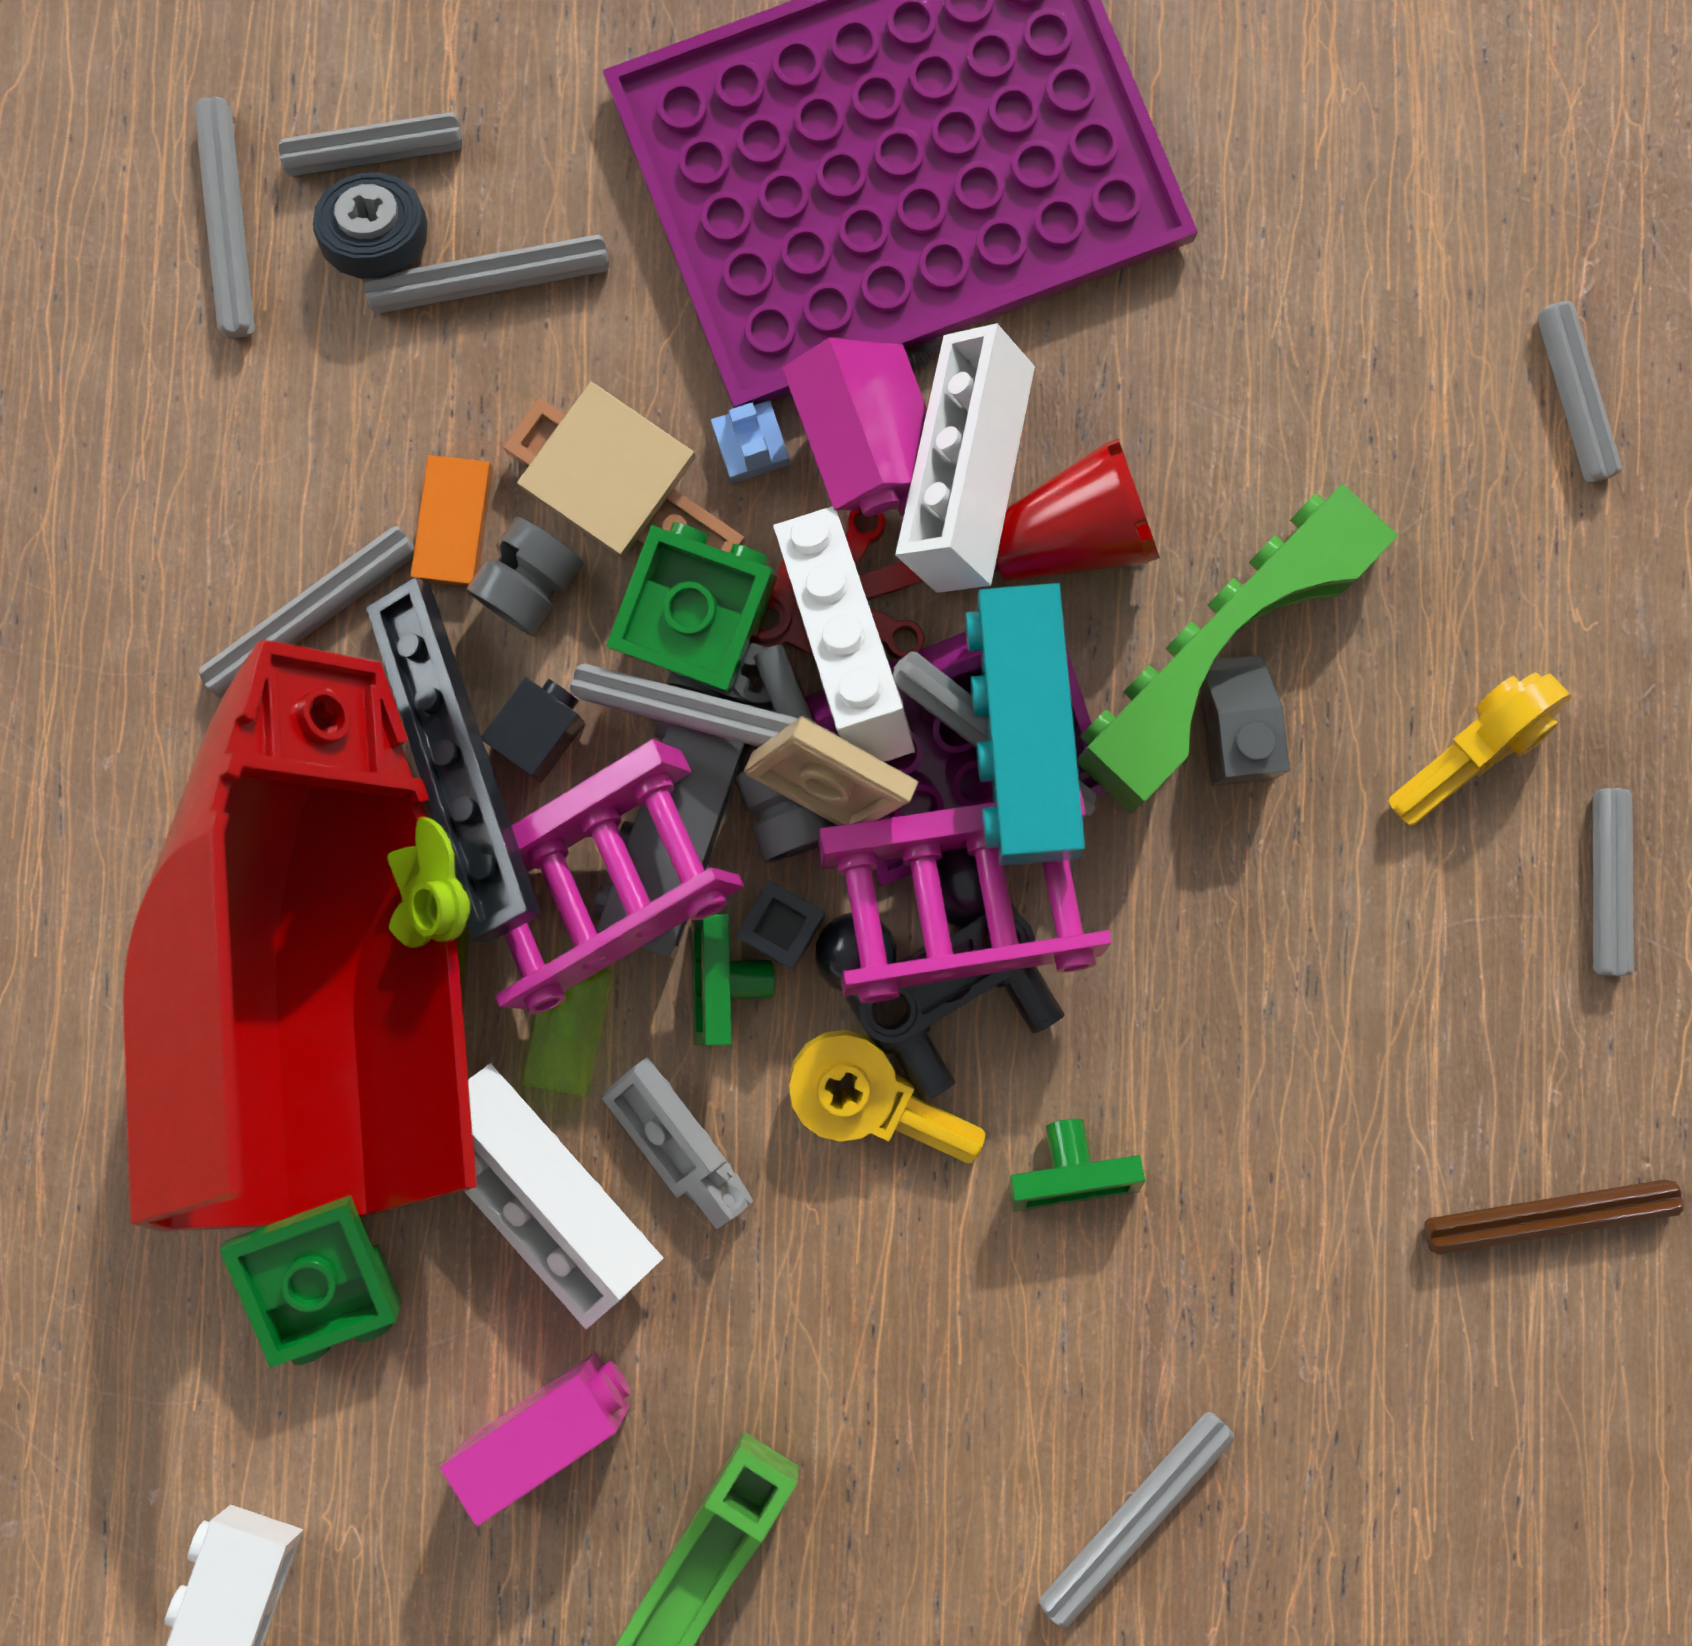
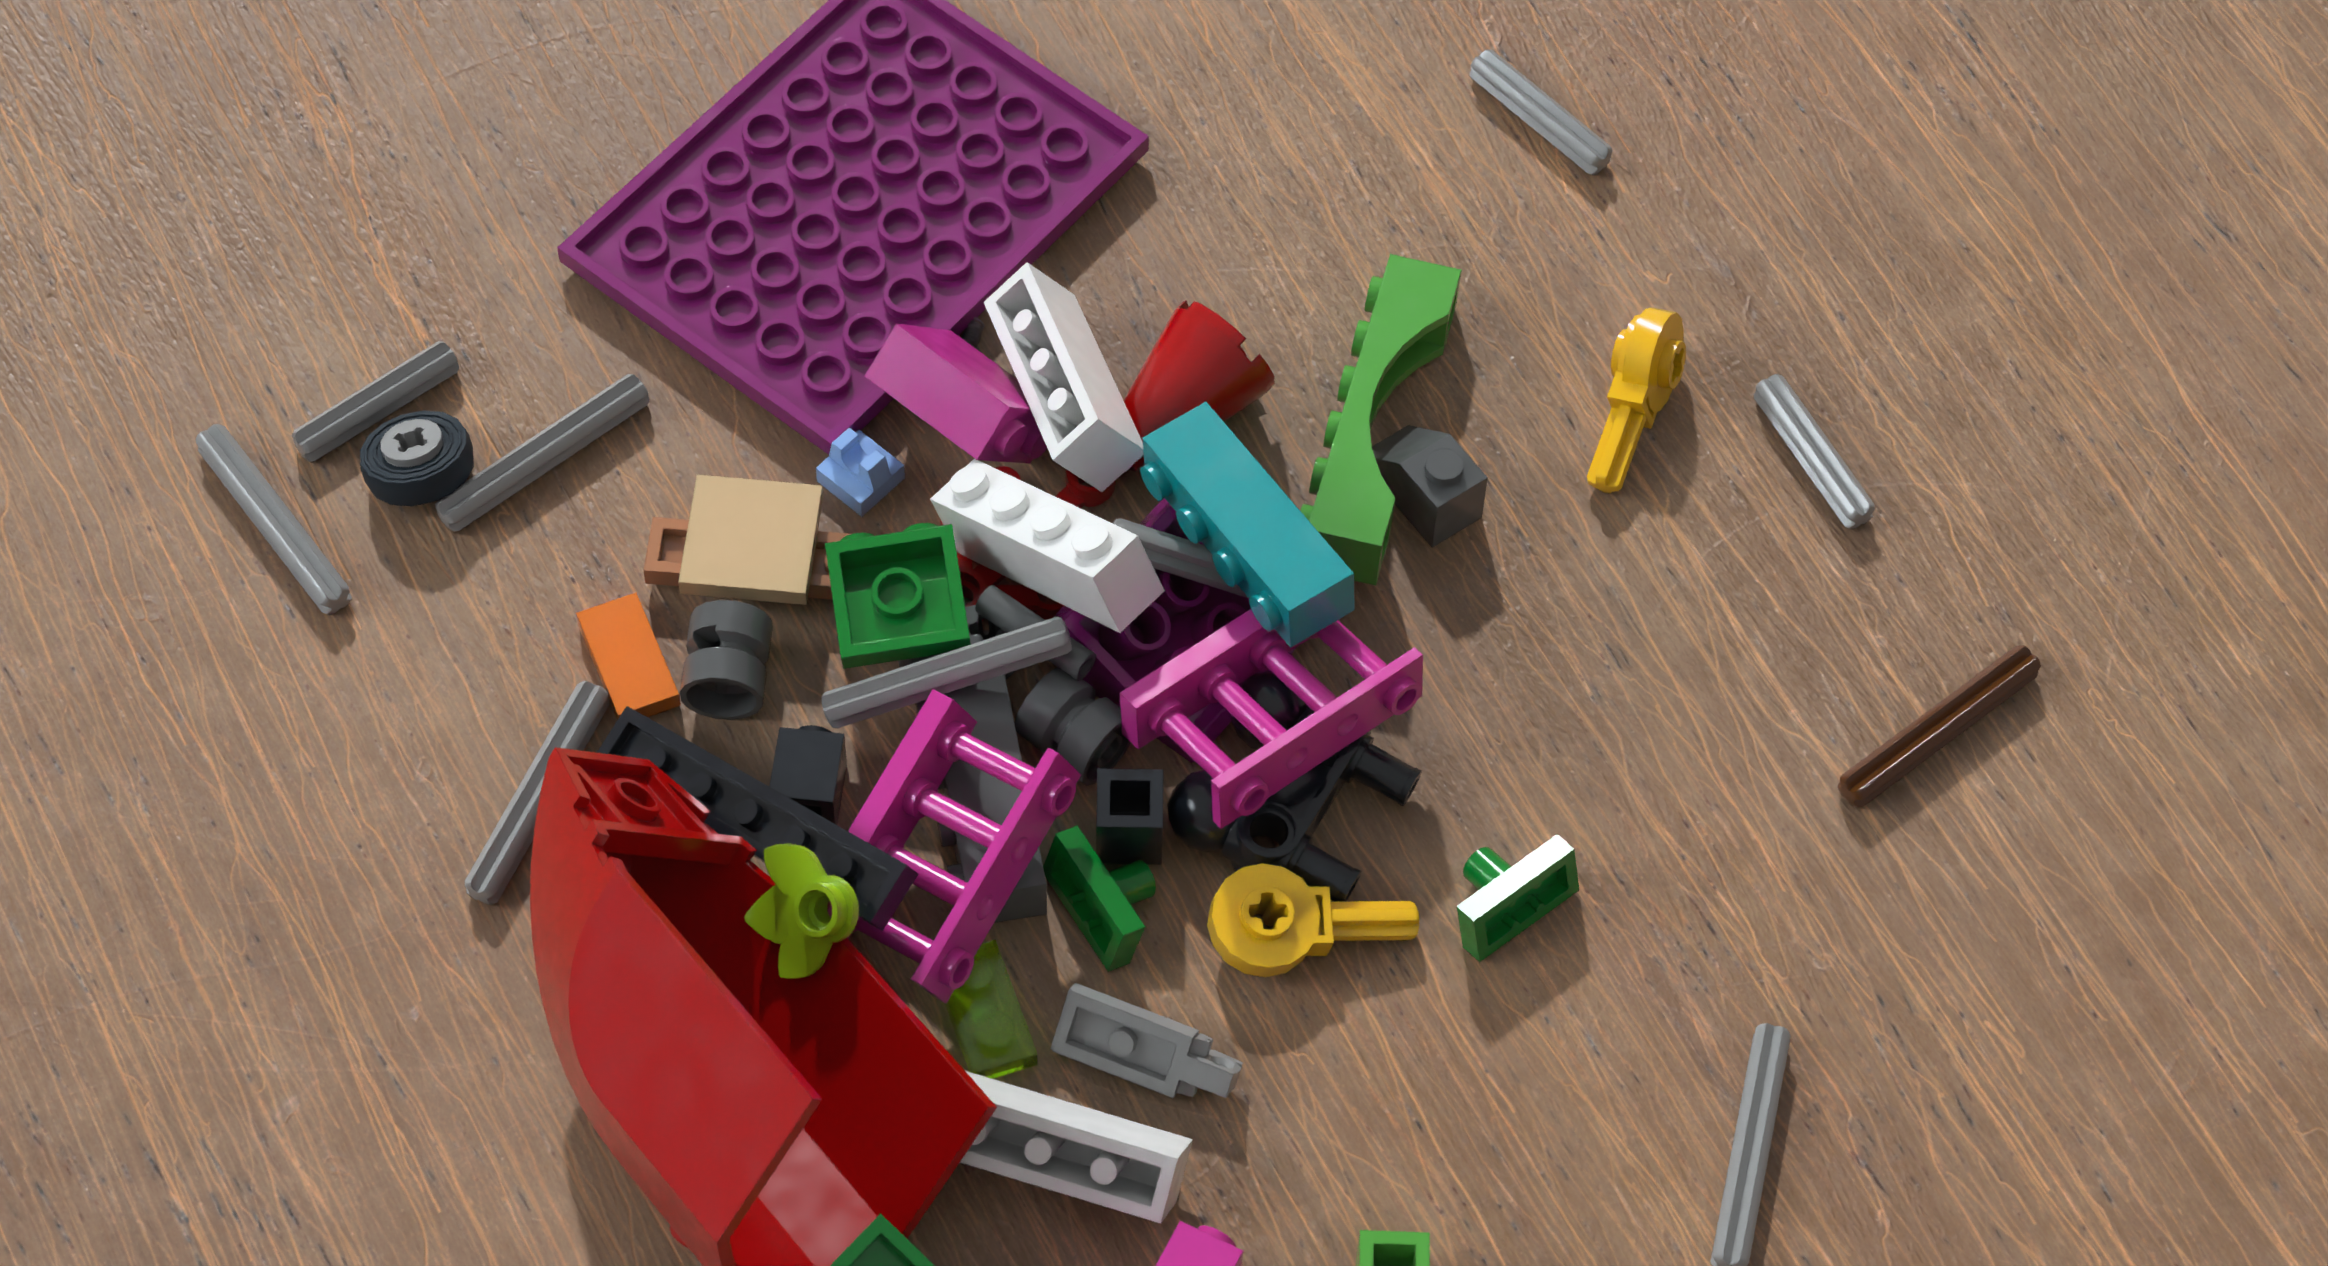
camera: 30 degrees left, 25 degrees down
(829, 775) = (1100, 640): tan tile -> none

